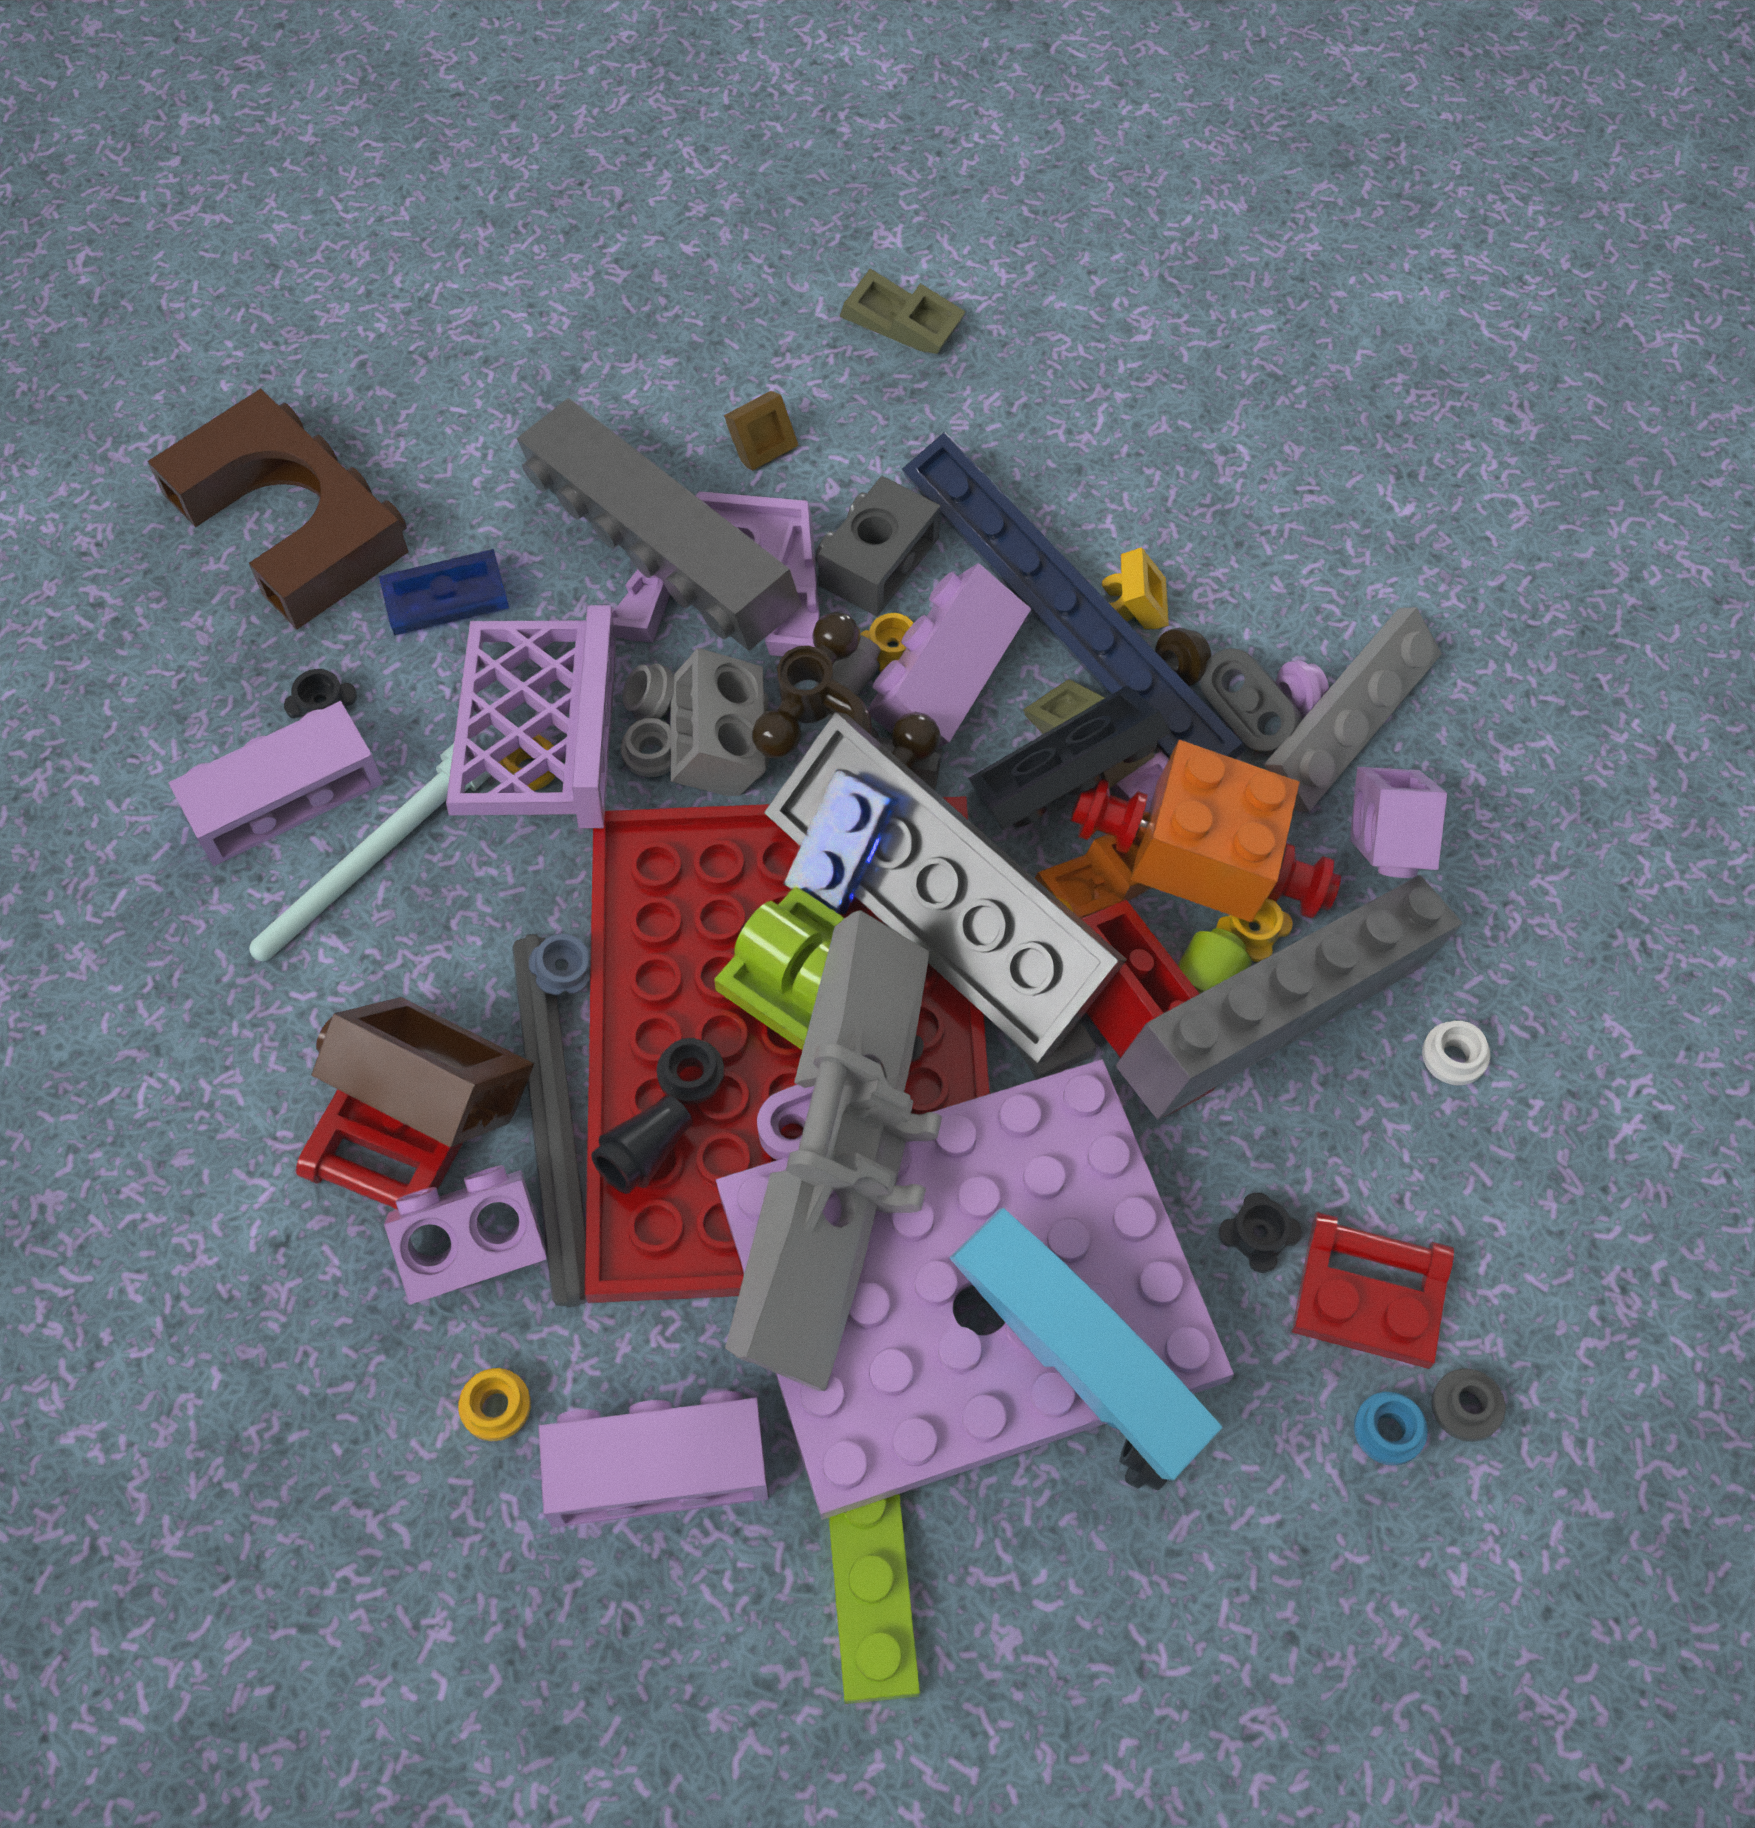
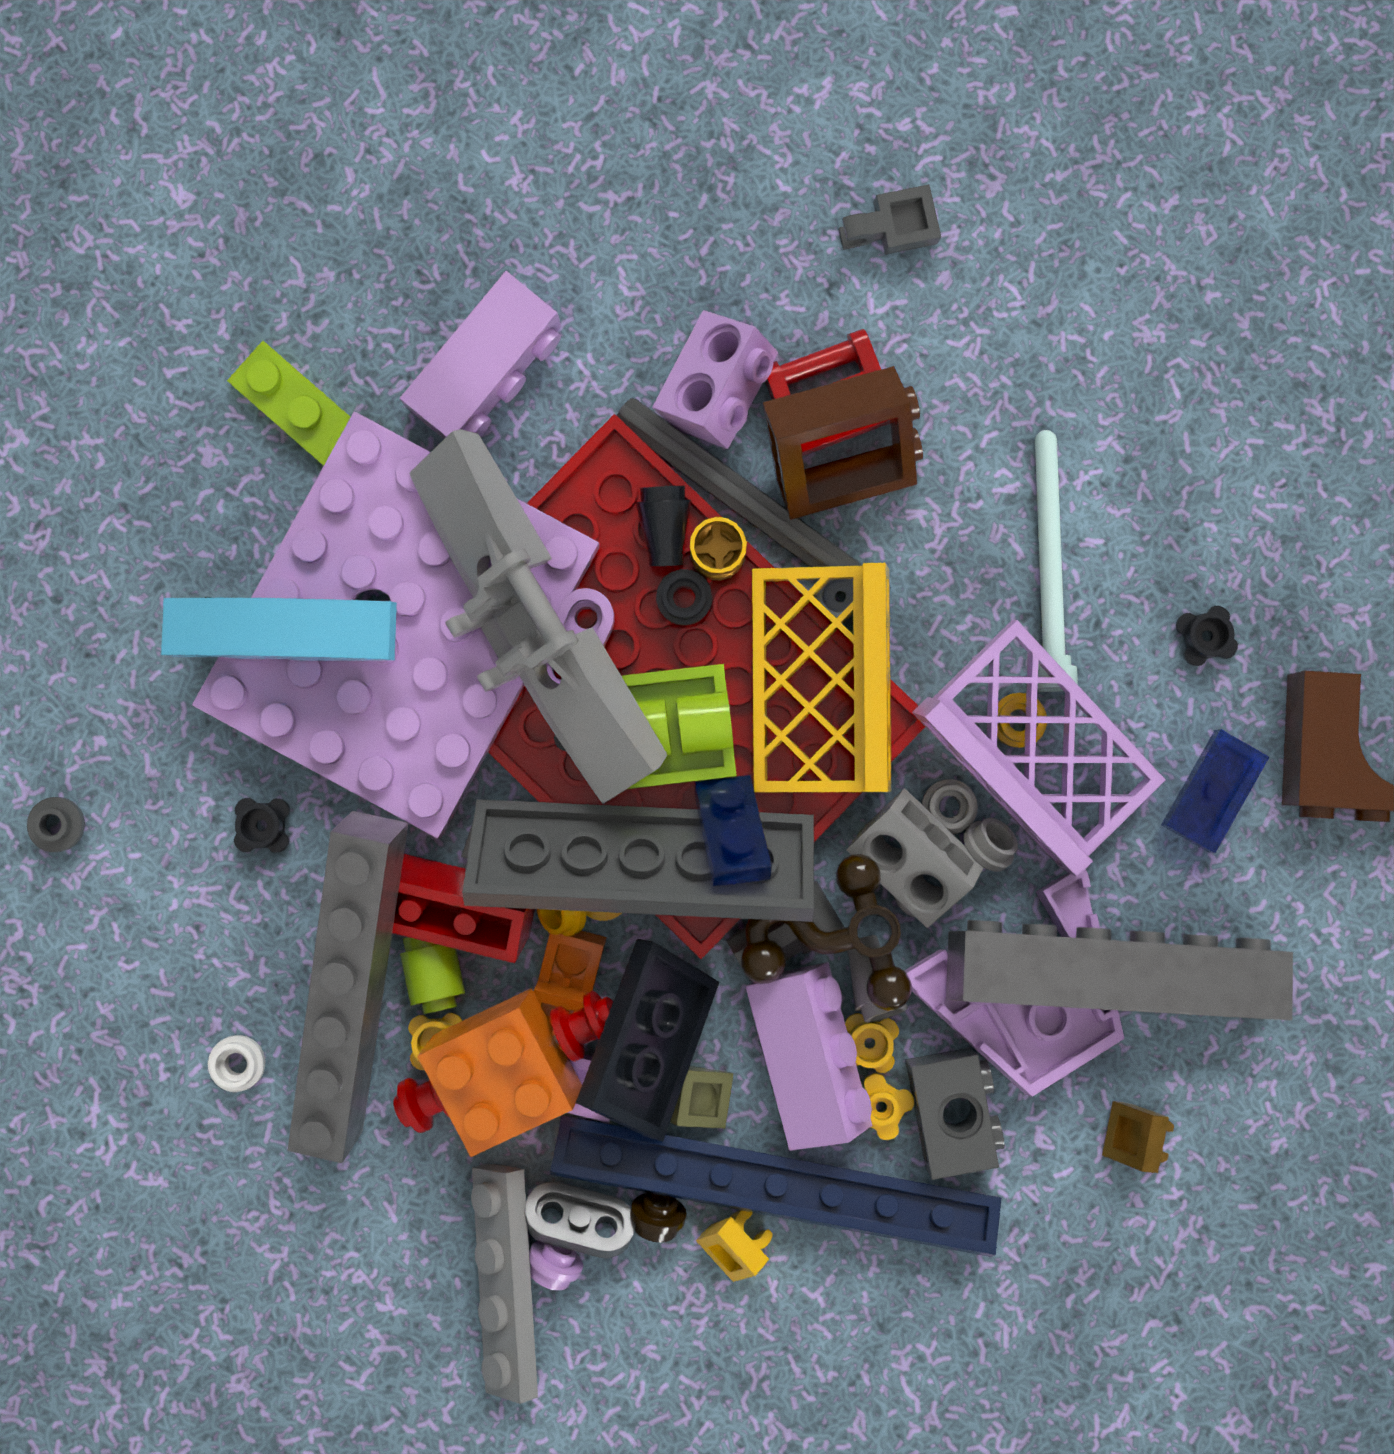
camera: 140 degrees right, 25 degrees up
(161, 1232) = (901, 220): none -> dark grey plate
(276, 782) = (1162, 547): lavender brick -> none
(479, 1389) = (608, 297): yellow plate -> none
(597, 875) = (871, 678): none -> yellow fence
(619, 1062) = (717, 538): none -> pearl gold wheel
(915, 319) = (1150, 1352): olive slope -> none
(915, 587) = (896, 1105): none -> yellow plate
(1369, 1311) = (157, 833): red plate -> none
(1398, 820) = (392, 1198): lavender brick -> none
(1401, 1410) = (74, 764): dark azure plate -> none

